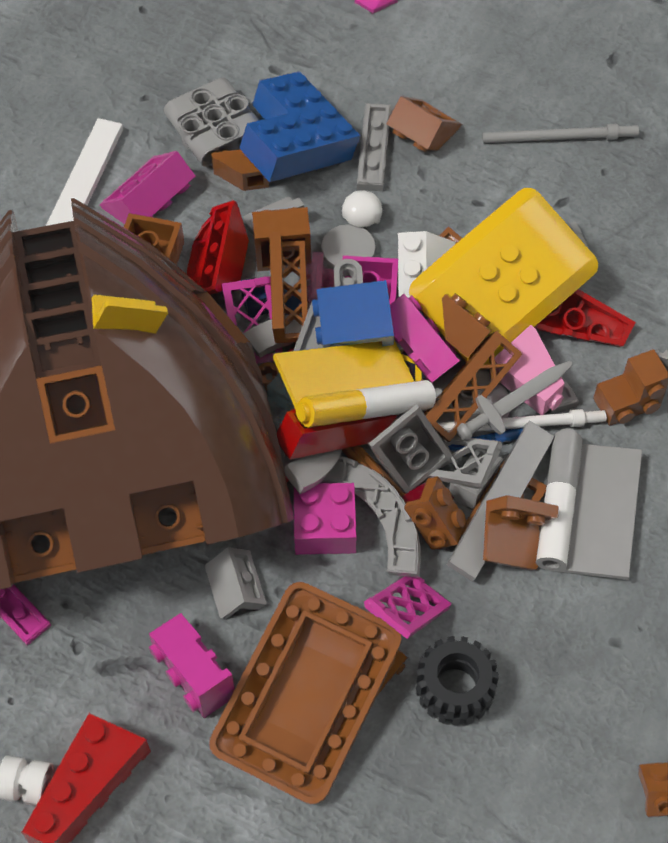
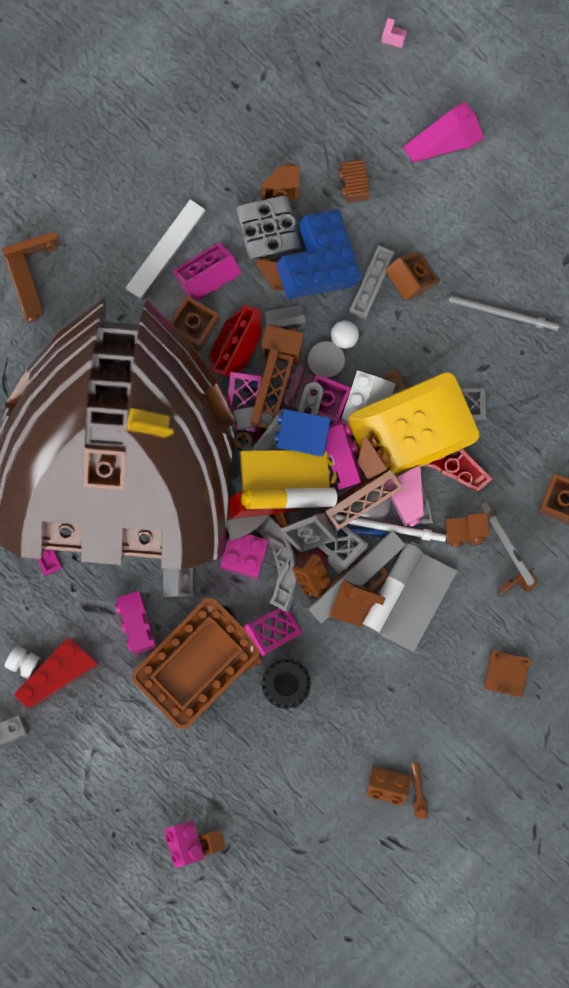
camera: 15 degrees right, 20 degrees up
(215, 59) = (282, 183): none -> dark orange slope
(307, 44) = (354, 180): none -> dark orange brick
(492, 414) = (369, 521): light grey sword -> none

